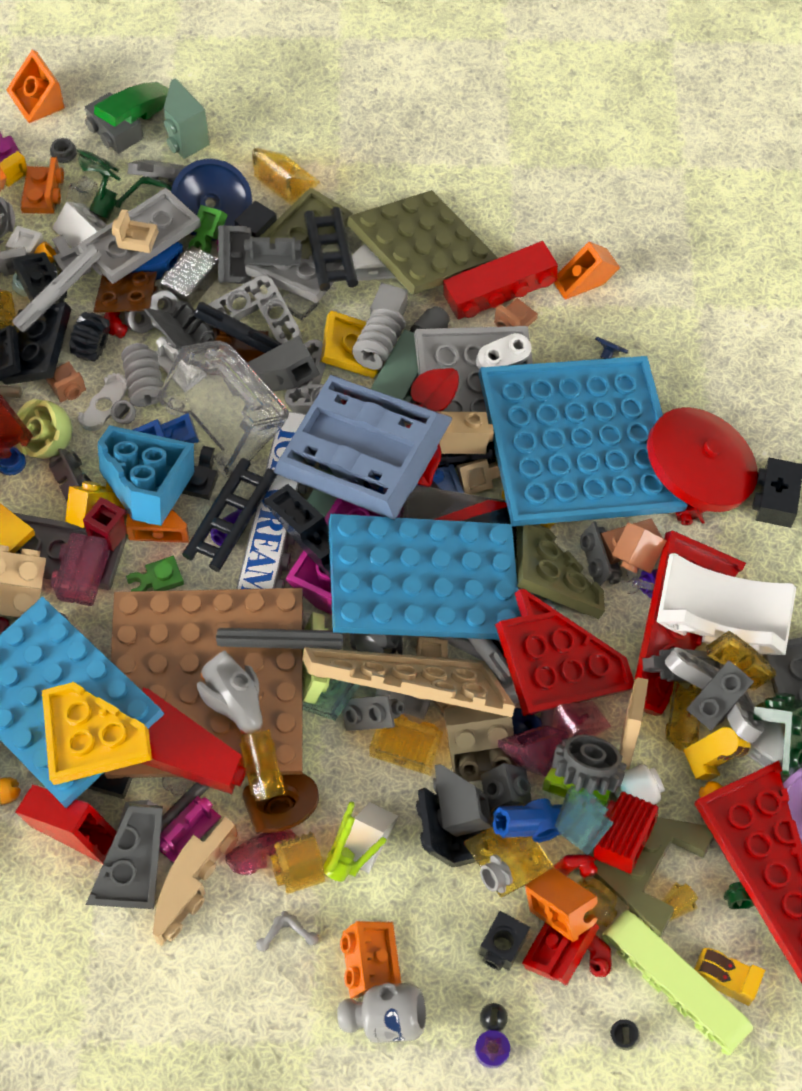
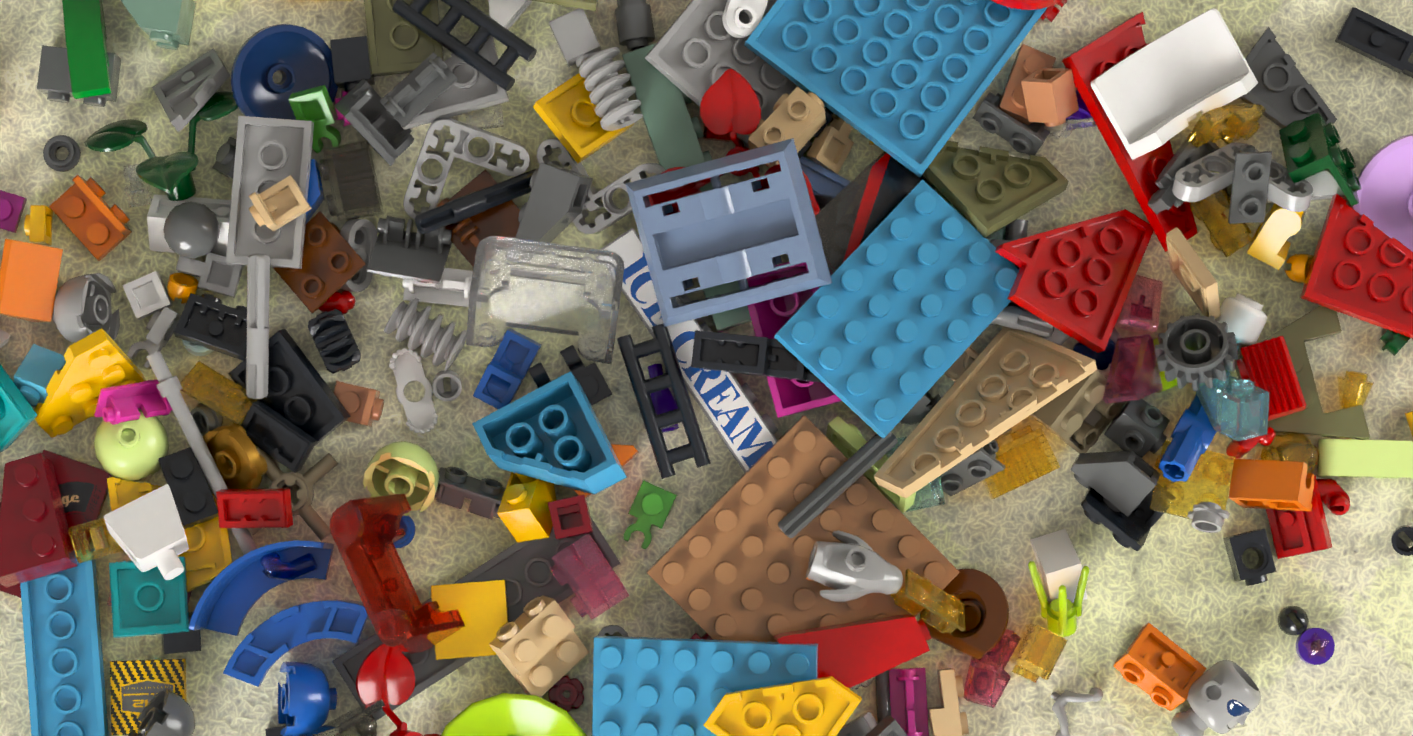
camera: 45 degrees left, 25 degrees up
(79, 222) = (191, 230): none -> dark grey hair

